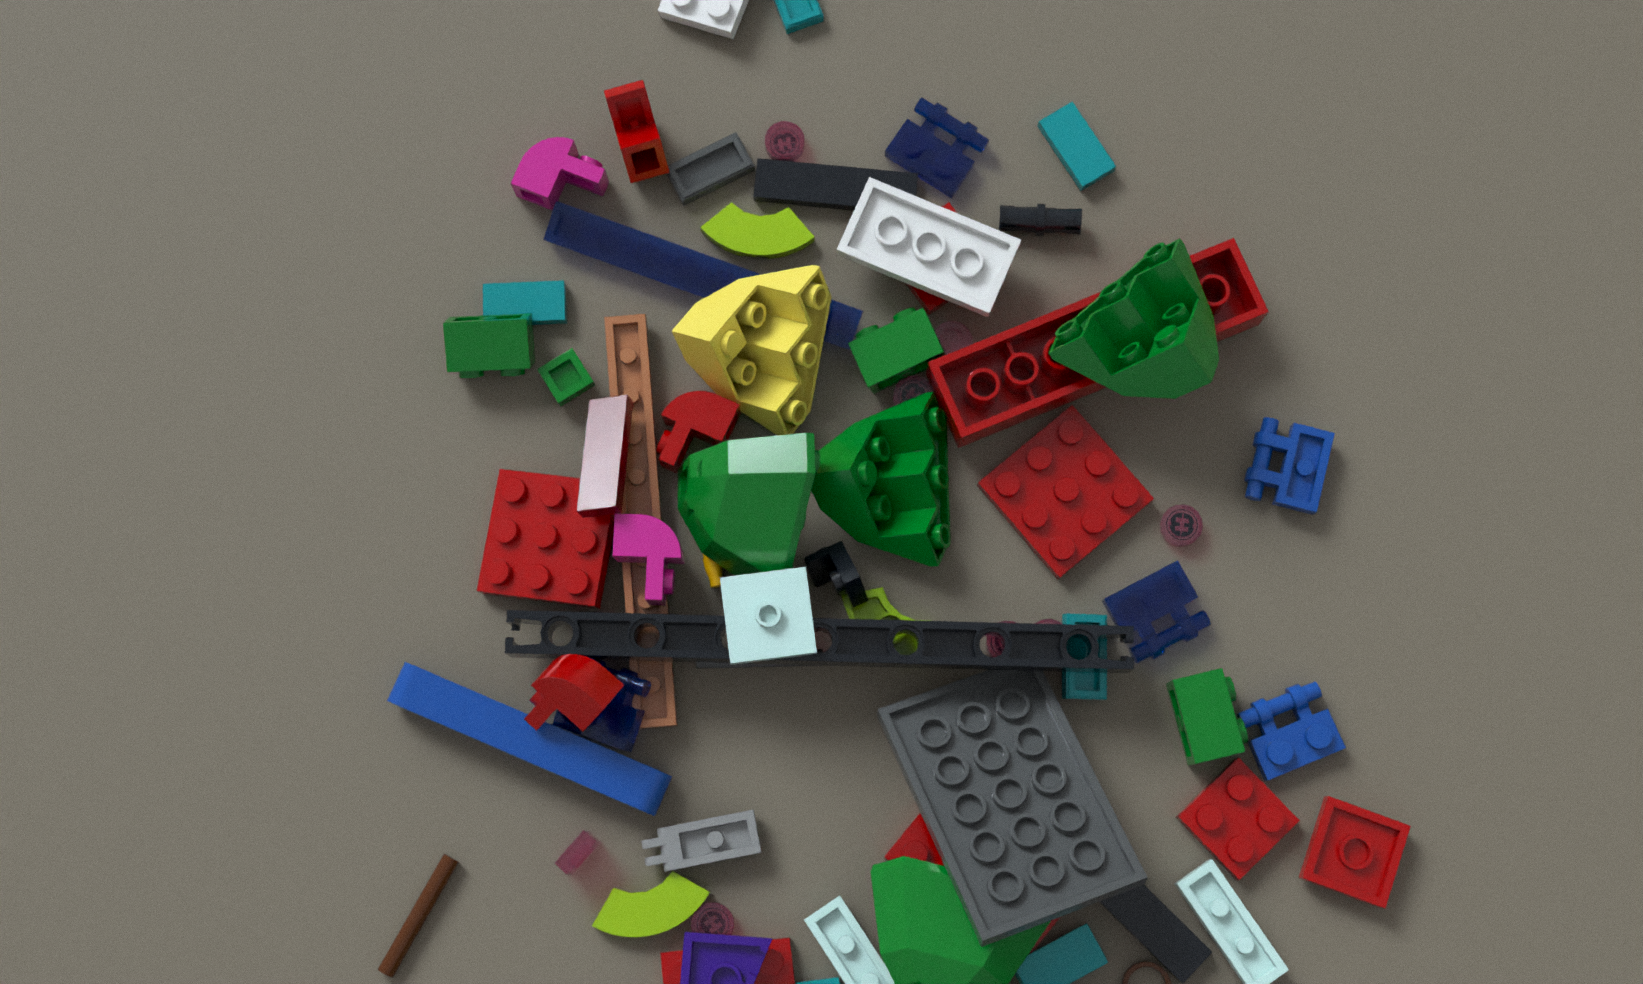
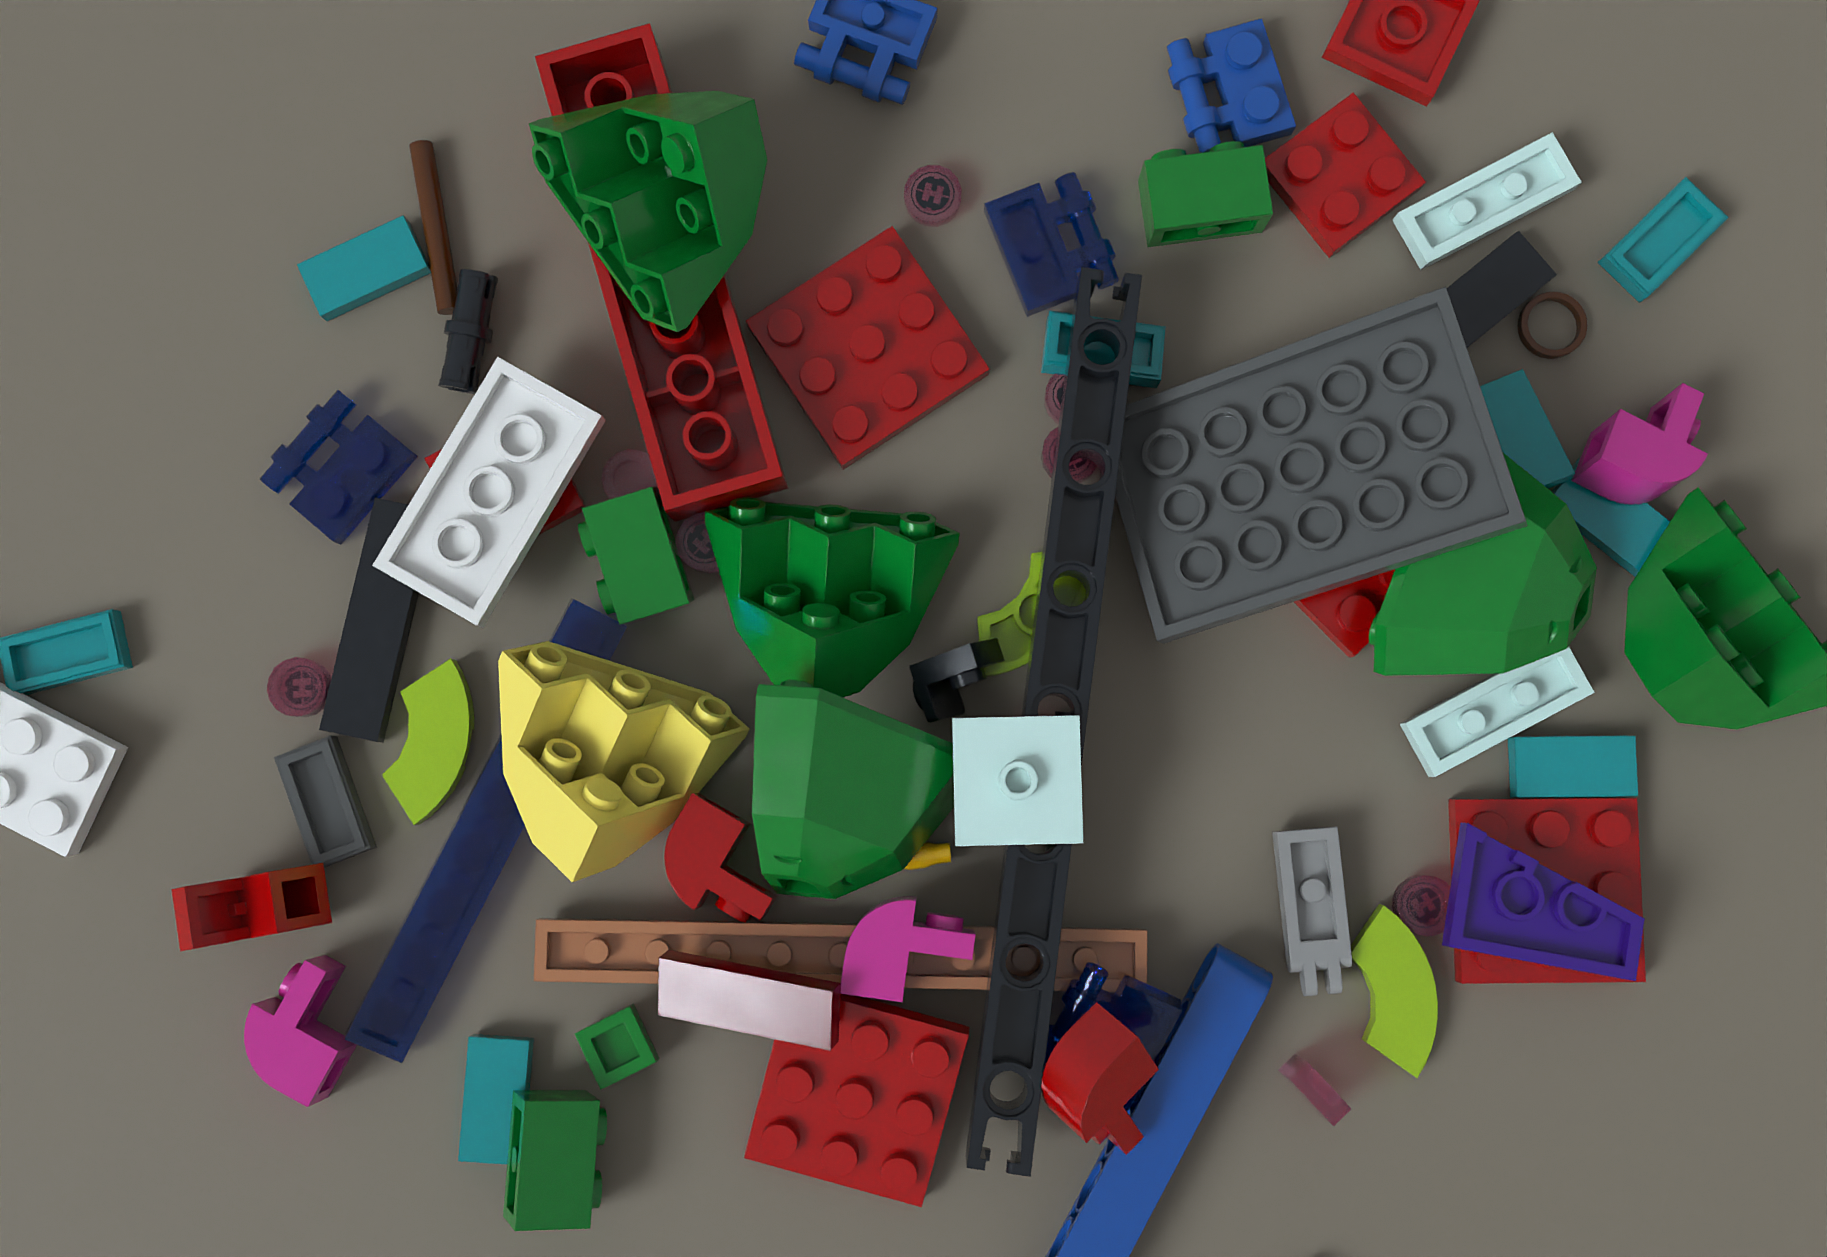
camera: 80 degrees left, 5 degrees up
(1113, 188) = (434, 225): none -> reddish brown bar

